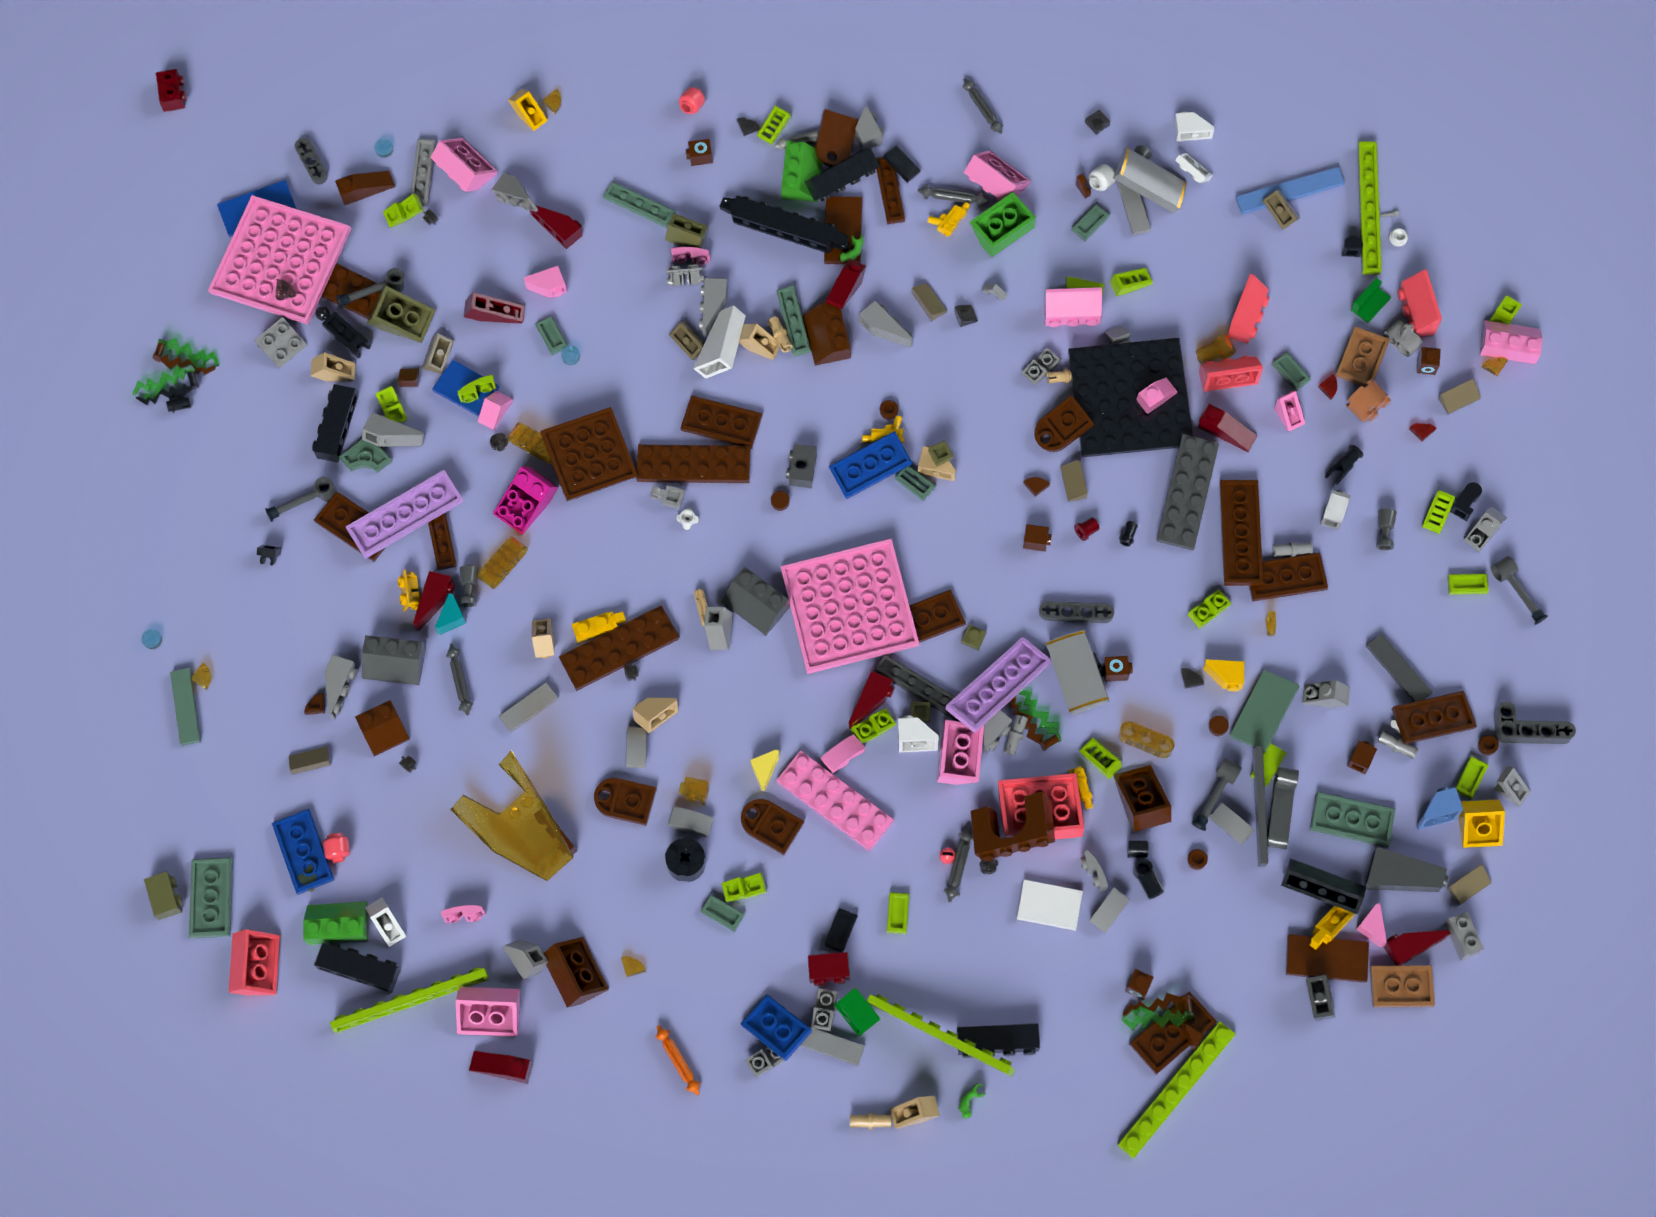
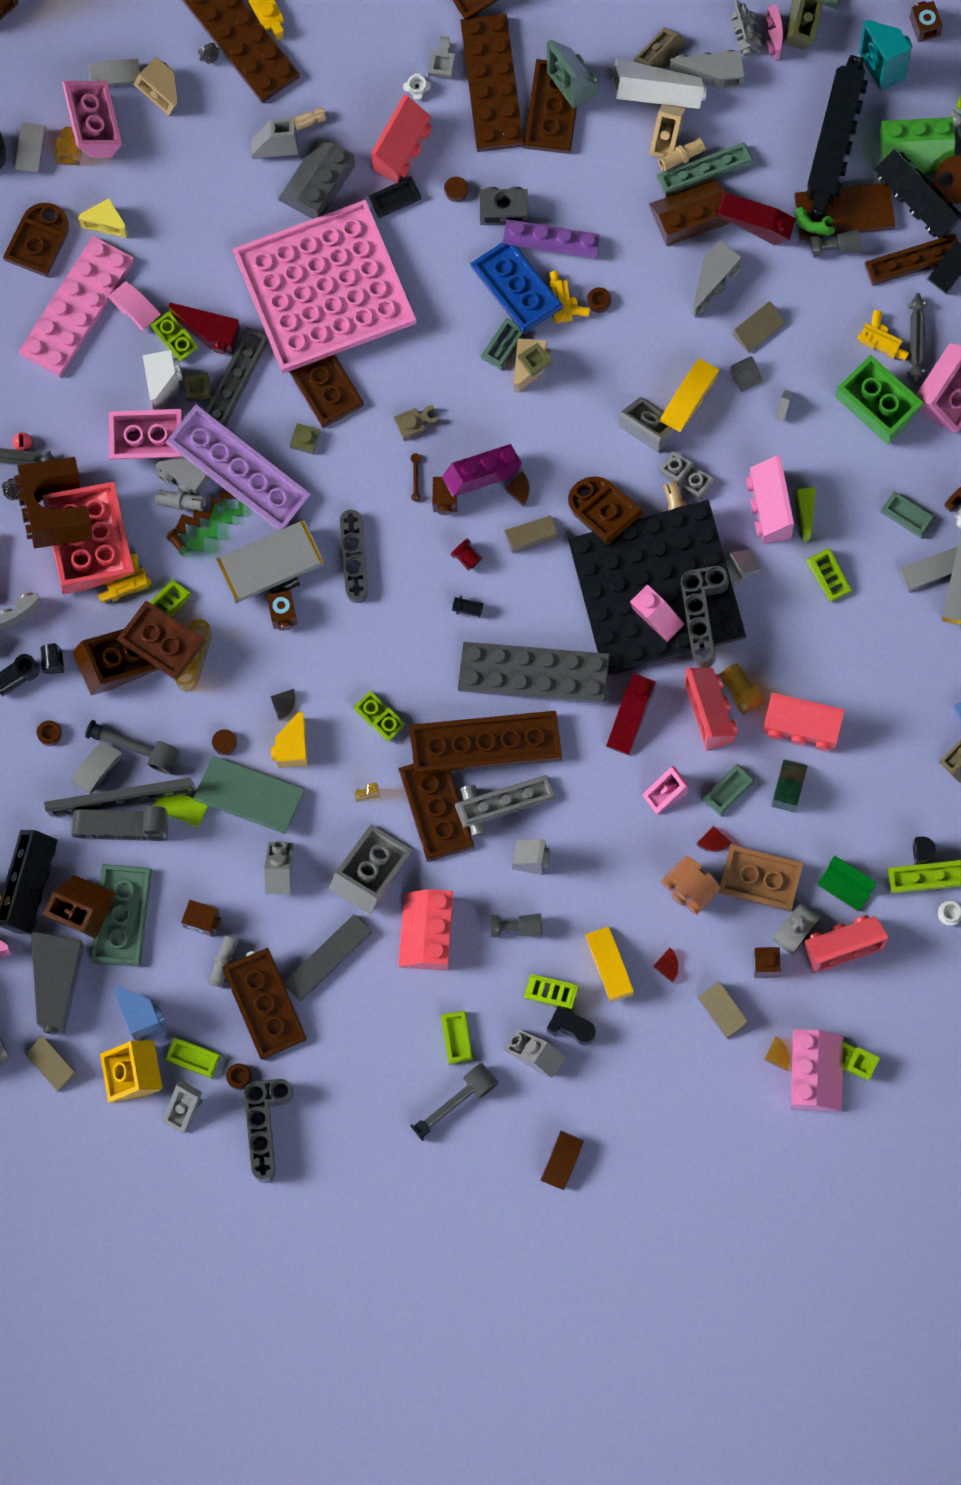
camera: 85 degrees right, 5 degrees up
(627, 800) = (48, 72): reddish brown tile -> none
(677, 762) = (92, 117): none -> bright pink slope
(706, 399) = (570, 74): none -> sand green slope
(729, 177) = (885, 53): none -> teal slope
(736, 533) = (401, 140): none -> coral slope
(779, 547) = (394, 197): none -> black tile
(834, 435) = (551, 238): none -> medium lavender plate
(870, 232) = (846, 243): none -> dark grey piece
(971, 556) = (412, 423): none -> dark tan plate
(979, 353) = (690, 395): none -> yellow slope
(997, 387) = (643, 422): none -> light grey slope
(1000, 558) = (415, 459): none -> reddish brown hinge
(1025, 504) = (481, 470): none -> magenta brick
(1137, 757) = (161, 640): none -> copper plate
(1164, 359) = (702, 617): none -> dark grey beam
(1289, 524) = (504, 801): none -> light grey tile
(1293, 327) = (789, 786): none -> clear green slope
(1333, 628) = (370, 869): none -> light grey slope
(1345, 462) = (603, 867): black piece -> none
(1347, 844) = (80, 905): none -> reddish brown slope
(1384, 593) = (426, 929): none -> coral slope
(1421, 468) = (609, 964): none -> yellow slope
(1565, 517) = (562, 1160): none -> reddish brown slope

